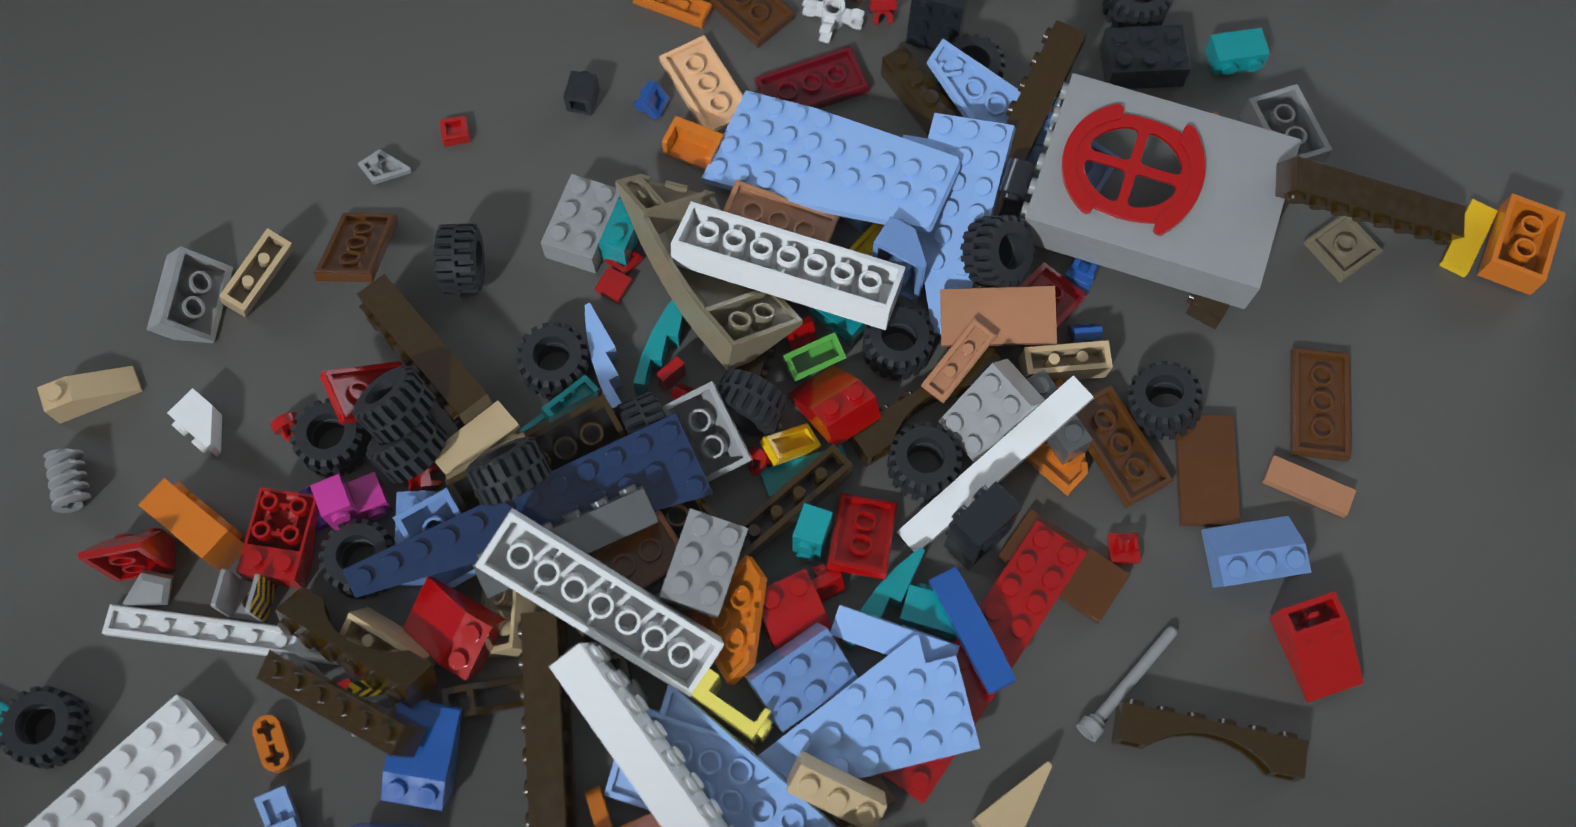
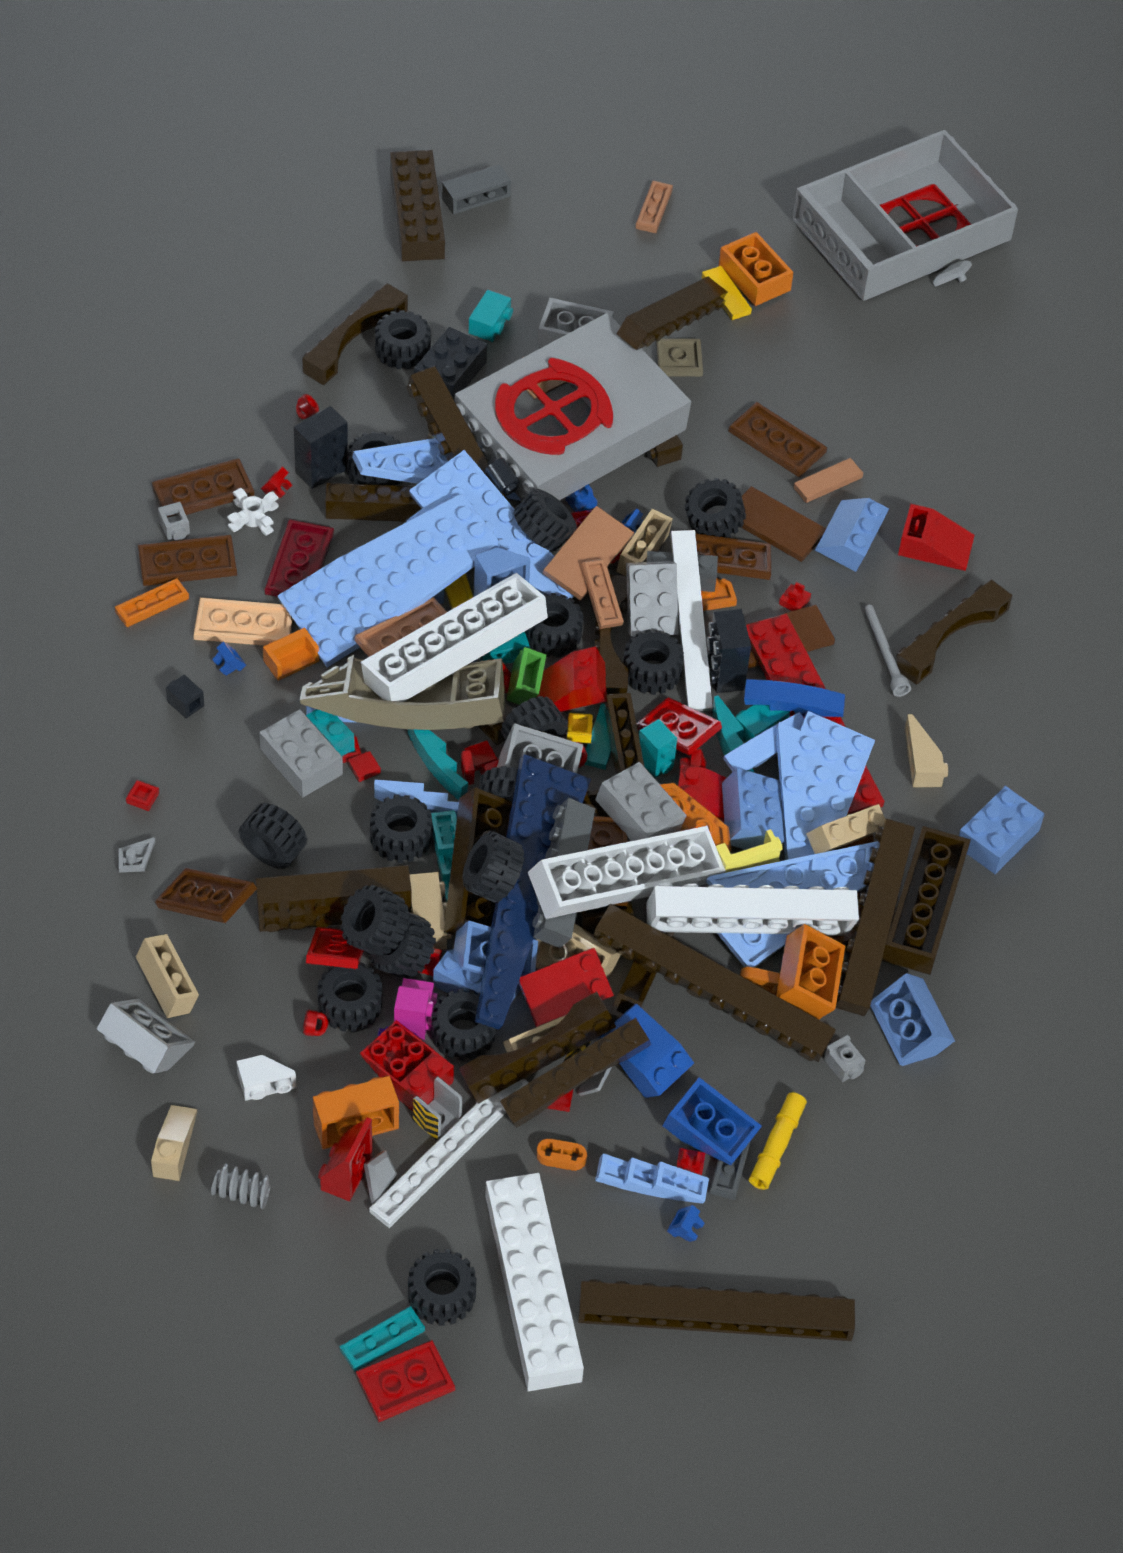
camera: 60 degrees left, 15 degrees down
(698, 374) = (481, 754): none -> red tile
(1517, 105) = (654, 206): none -> nougat tile

